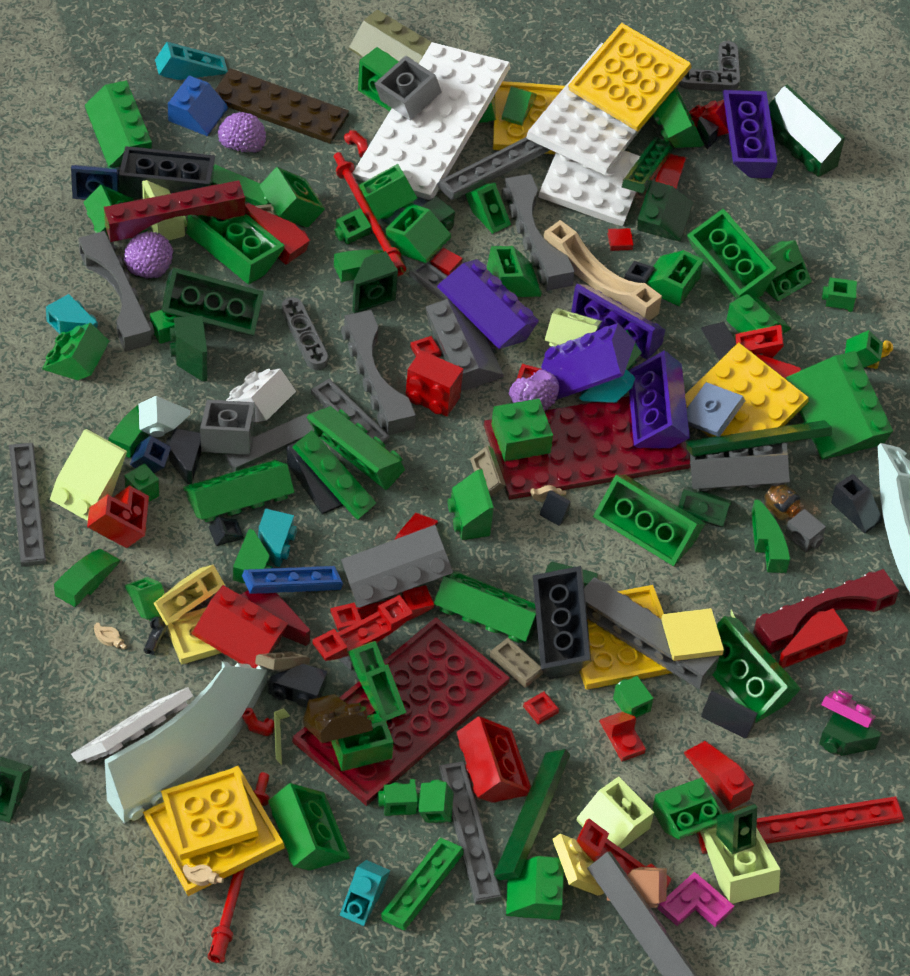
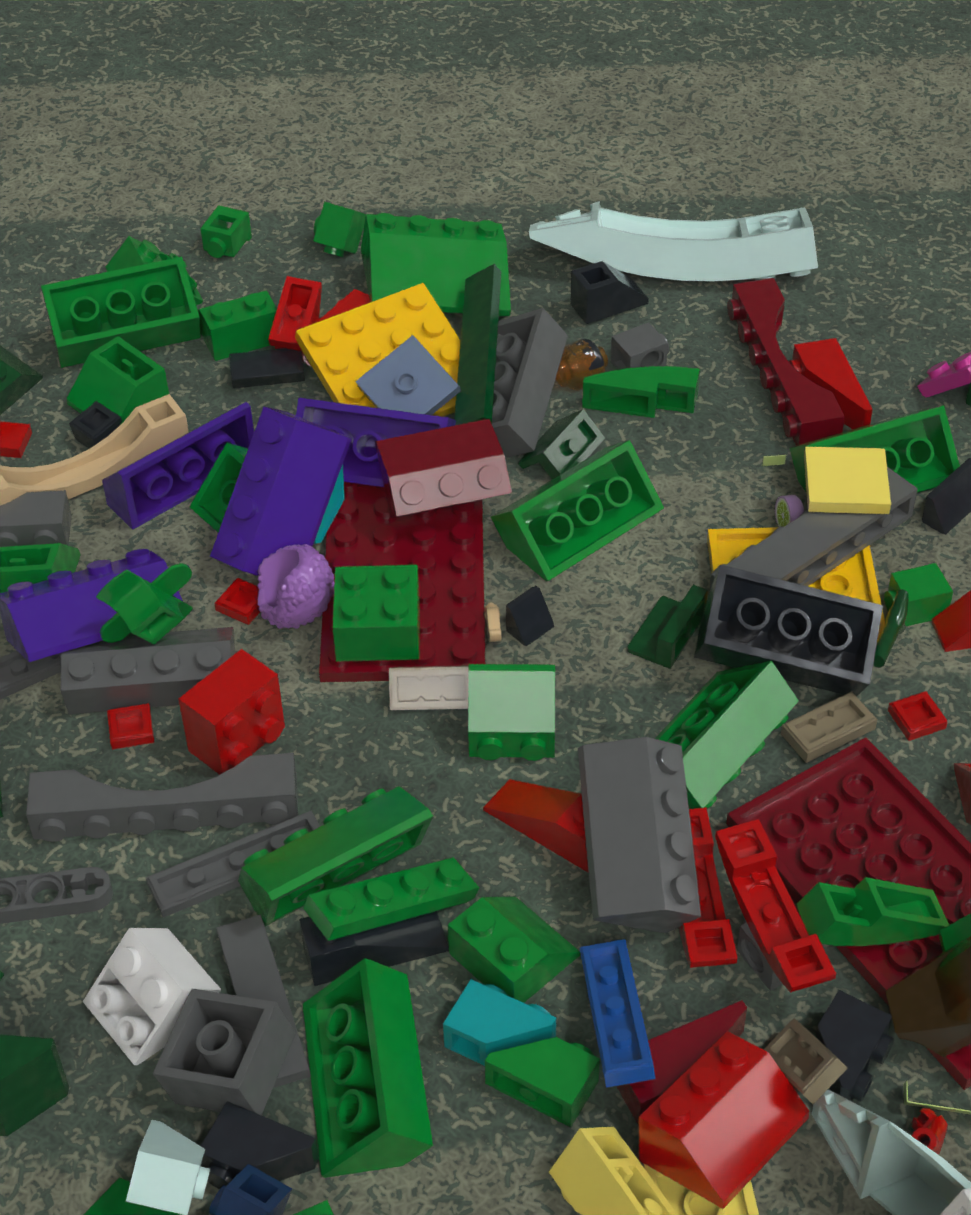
camera: 70 degrees left, 5 degrees down
(225, 531) = (454, 1117): black slope -> none
(325, 534) = (508, 946): none -> green slope
(479, 324) = (143, 606): none -> green piece
(569, 326) = (186, 515): yellowish green slope -> none
(602, 684) = (893, 627): none -> dark green piece
(638, 435) = (442, 468): none -> dark red slope

